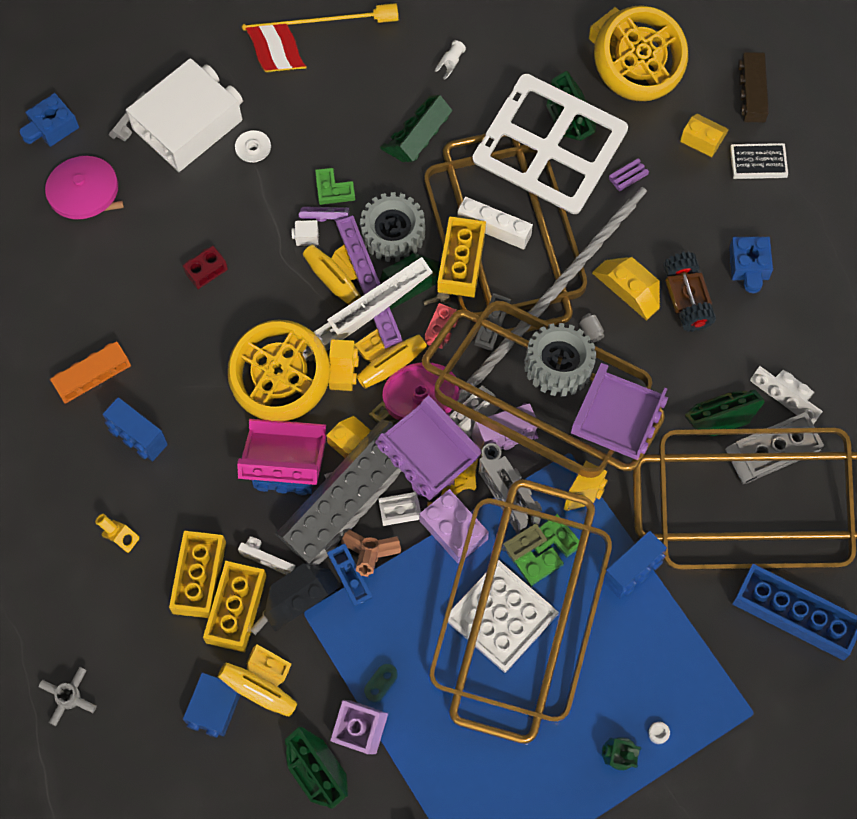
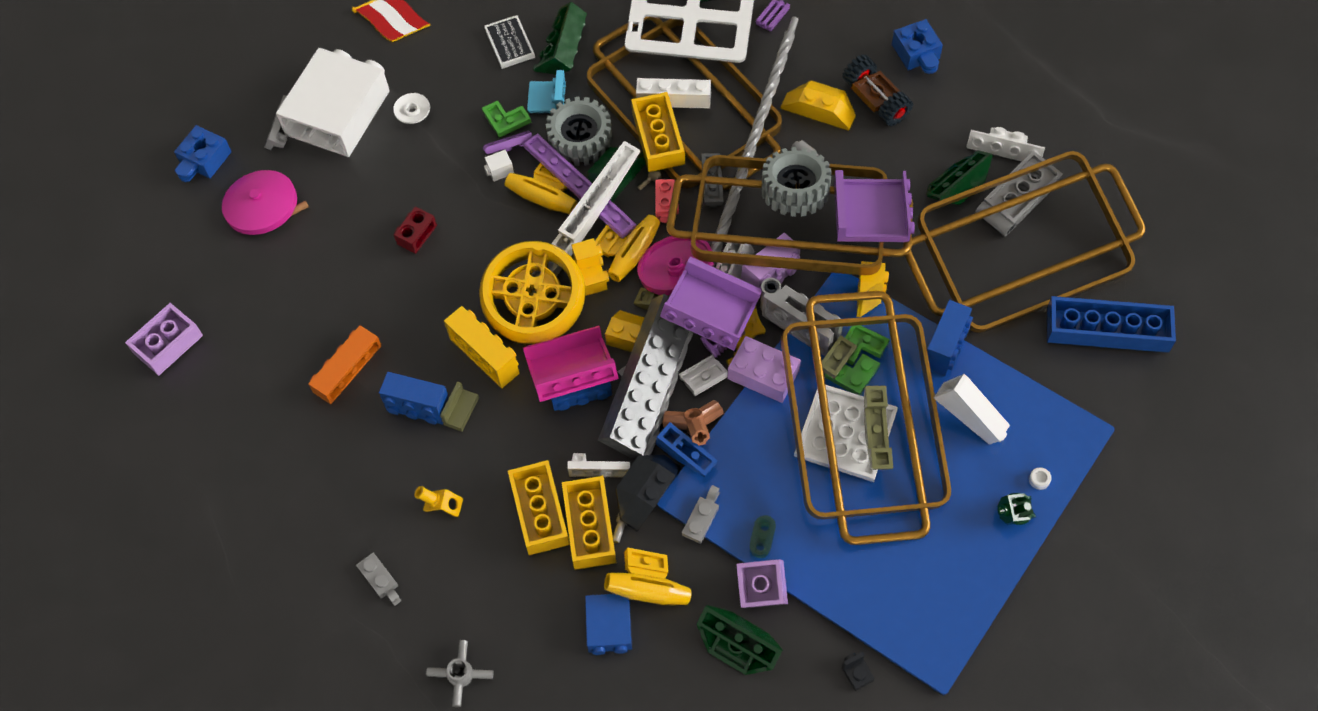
camera: 20 degrees left, 5 degrees down
(37, 581) = (379, 578): none -> light grey plate
(171, 452) = (459, 407): none -> olive panel
(214, 403) = (482, 346): none -> yellow brick
(337, 641) = (702, 516): none -> light grey plate
(370, 112) = (509, 42): none -> black tile
(380, 178) = (546, 94): none -> medium azure bracket
(523, 628) = (876, 428): none -> olive slope
(622, 644) = (972, 409): none -> white slope

